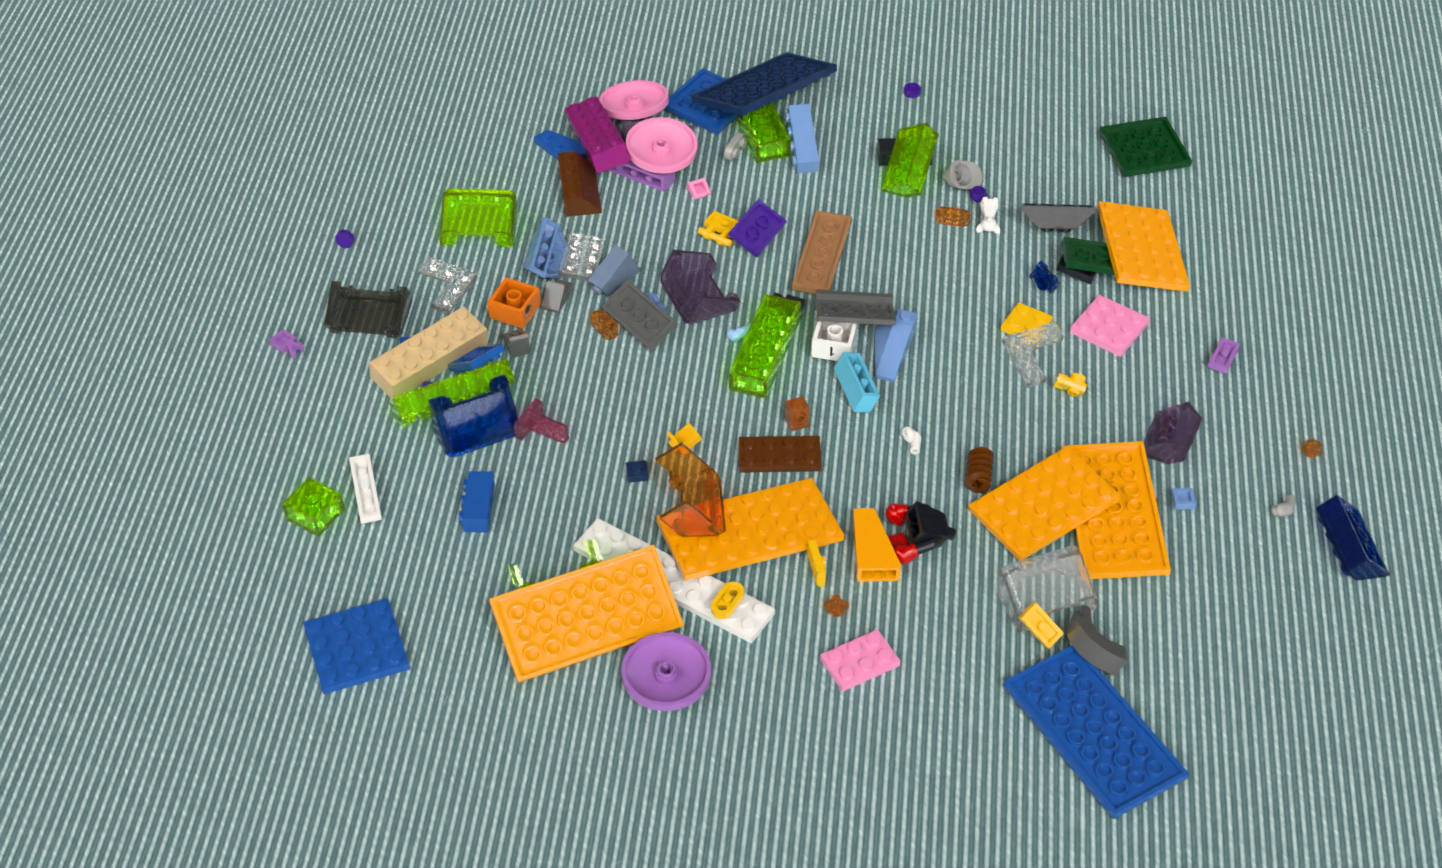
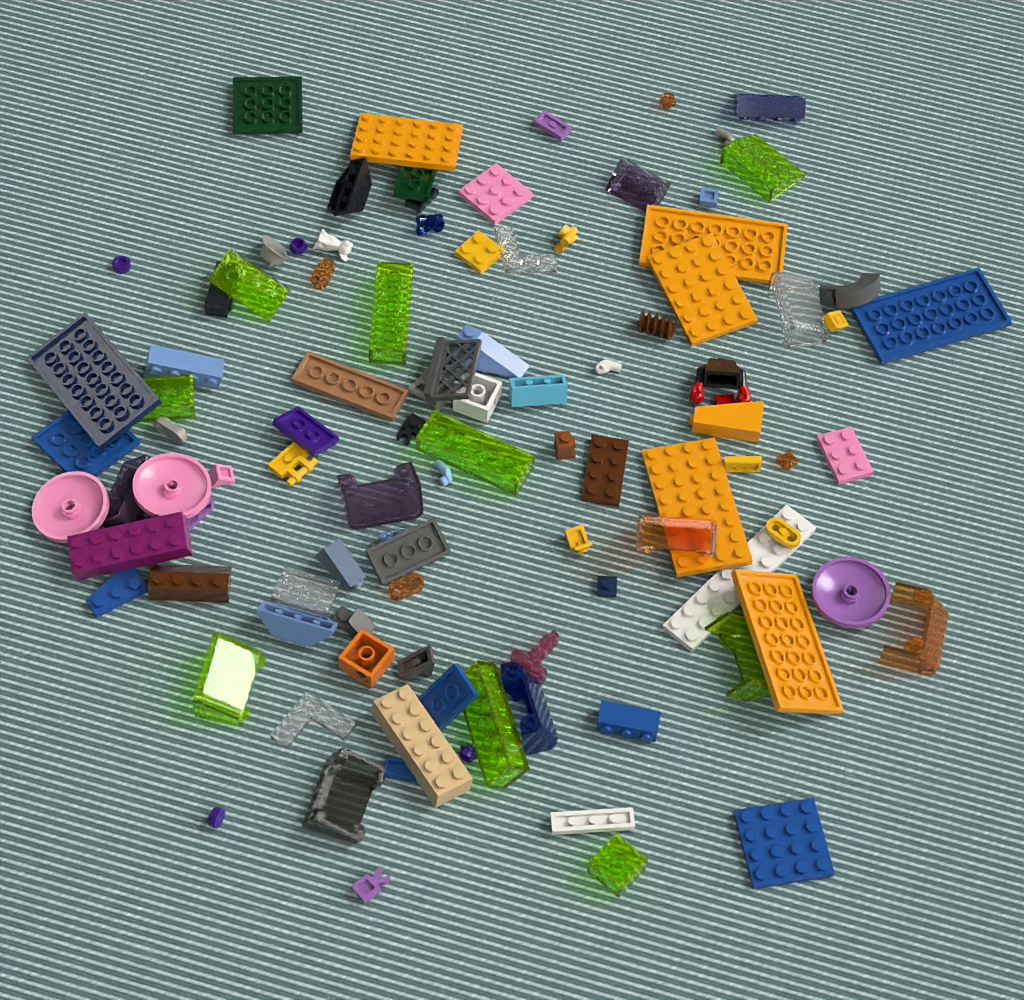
camera: 85 degrees left, 10 degrees up
(629, 752) = (925, 654): none -> clear orange windscreen
(916, 263) = (391, 313): none -> clear neon green brick
(1255, 543) = (760, 166): none -> clear neon green slope

